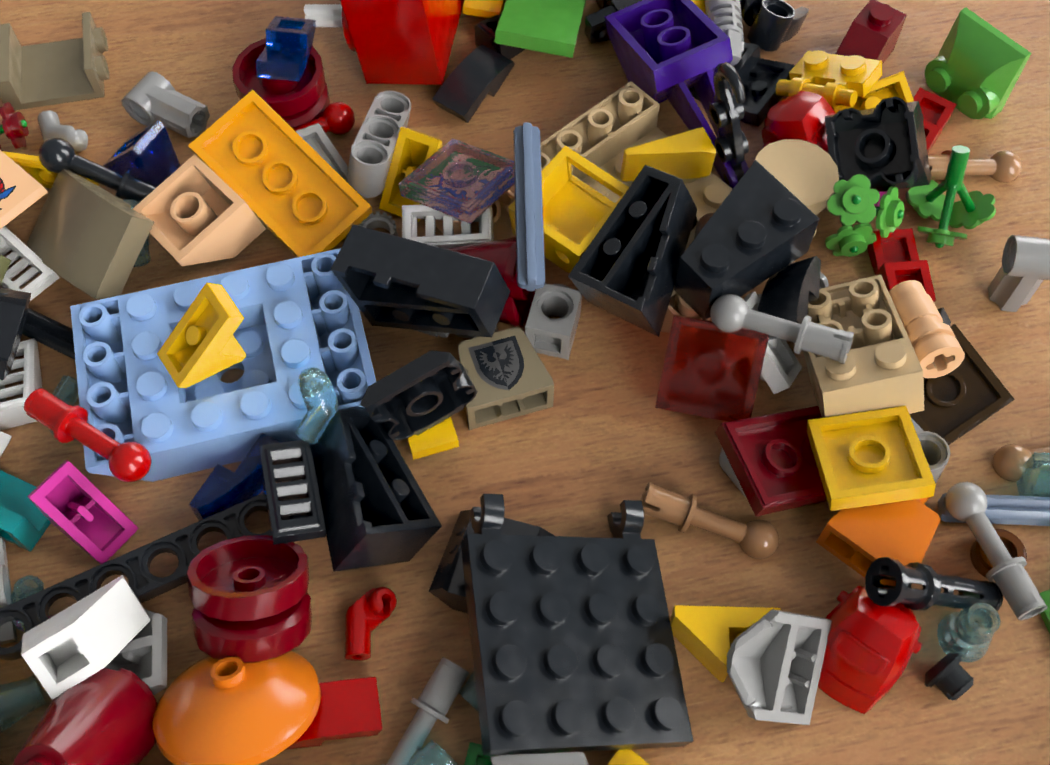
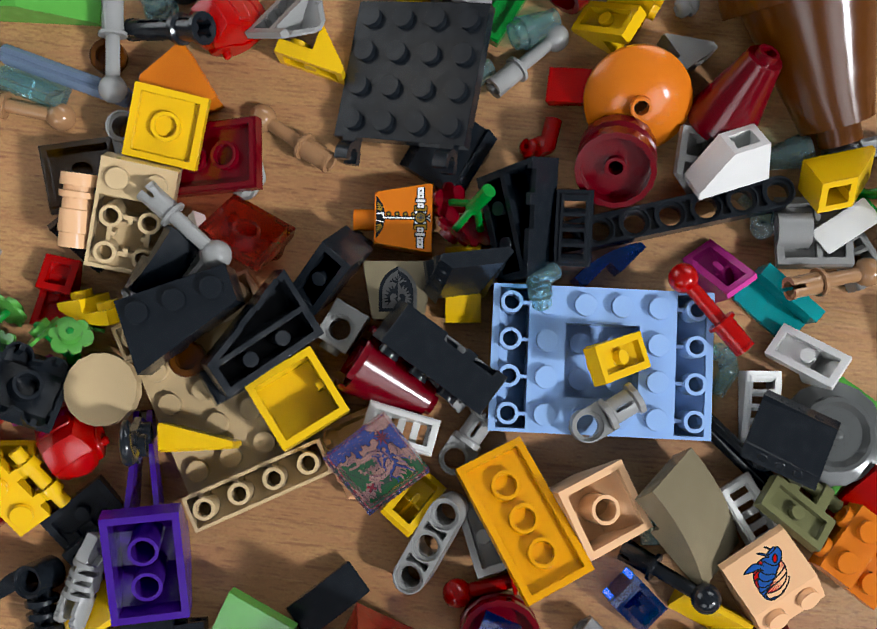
camera: 160 degrees left, 25 degrees up
(182, 291) = (608, 413): none -> light grey connector
(451, 449) = (451, 202): none -> dark red plant
(526, 455) = (400, 219): none -> orange torso
(529, 207) = (333, 399): sand blue axle -> none
(585, 369) = (332, 267): none -> black hinge
(847, 250) = (91, 307): none -> yellow slope

